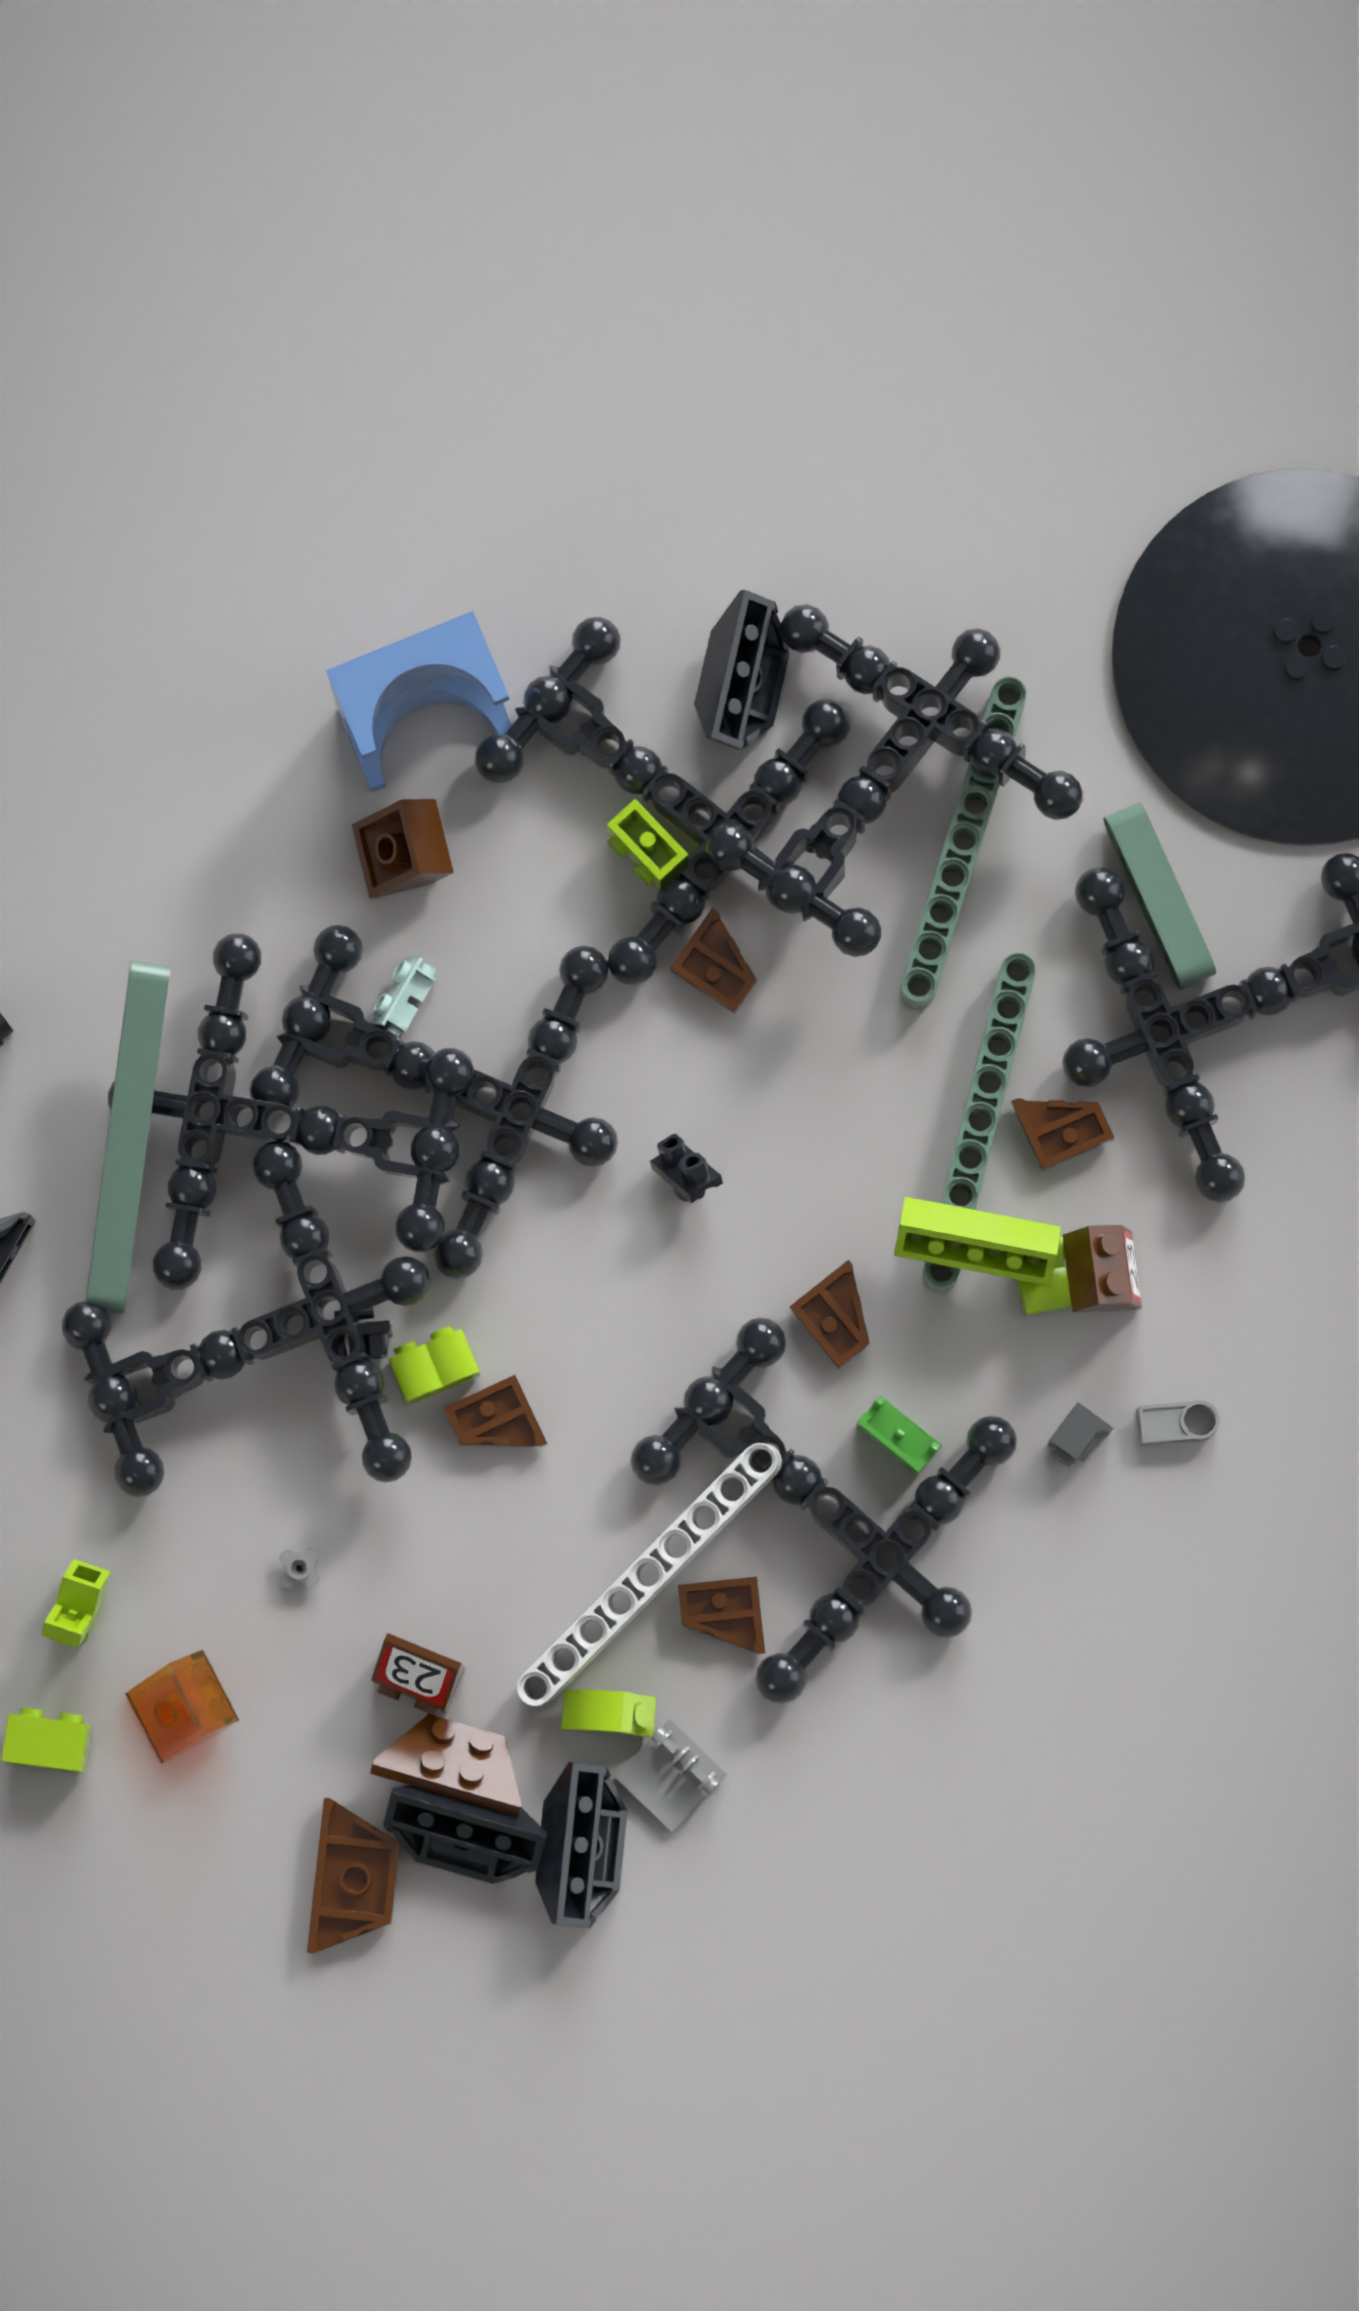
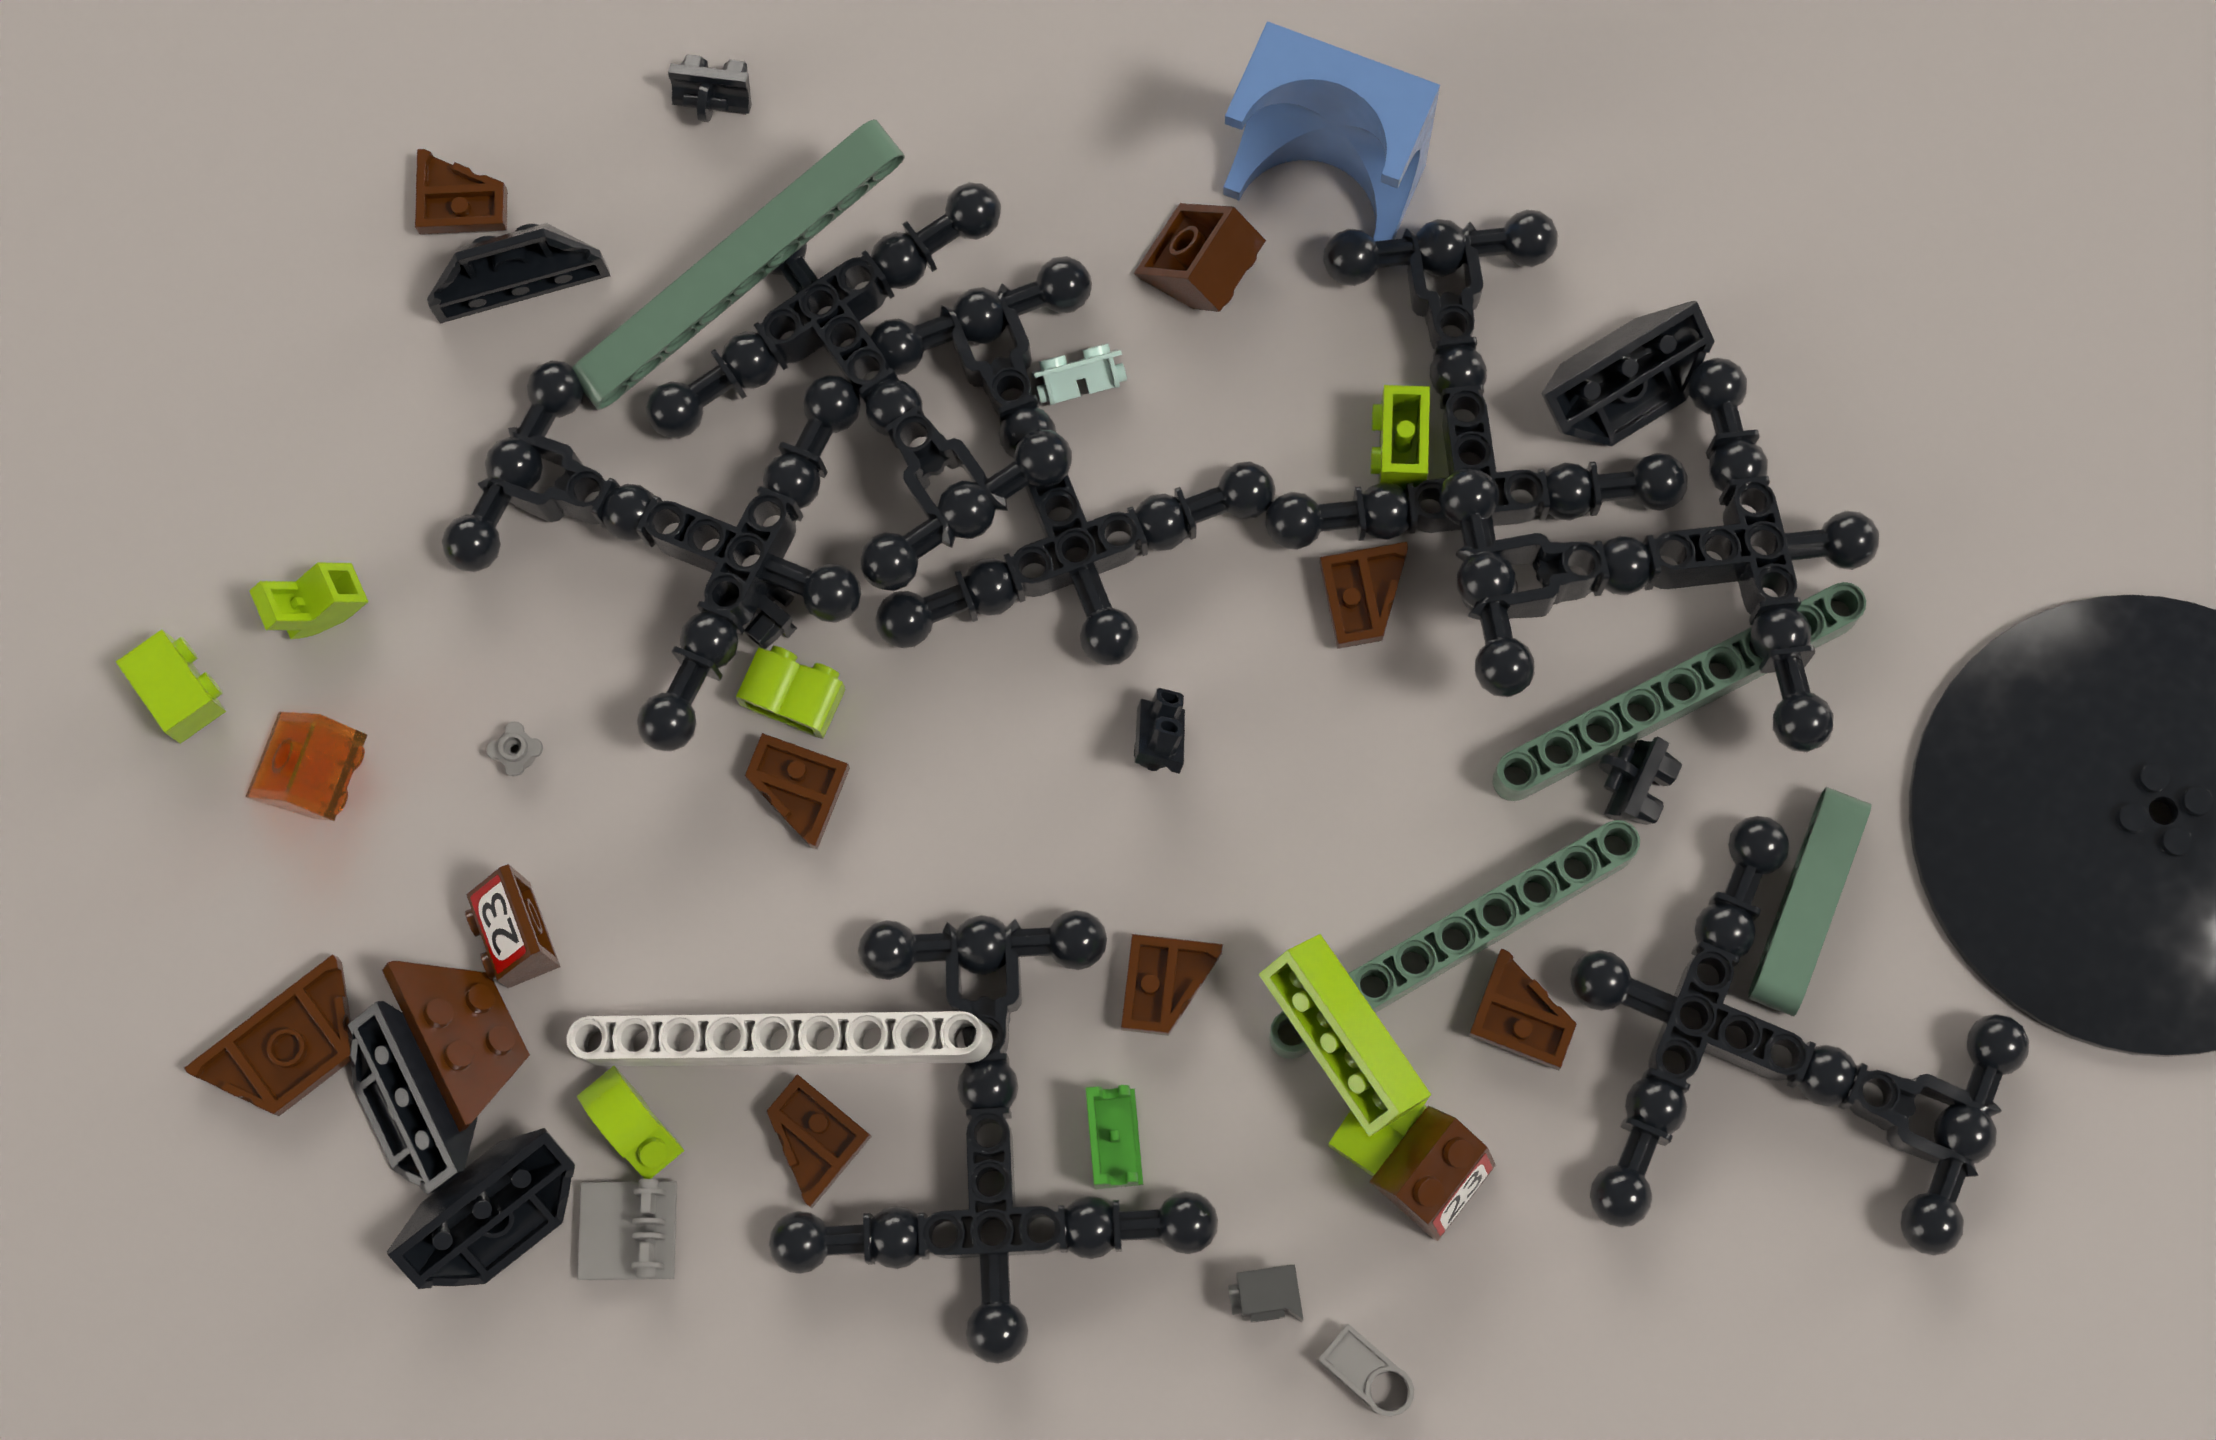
camera: 50 degrees right, 5 degrees down
(988, 922) = (1632, 777): none -> black hips

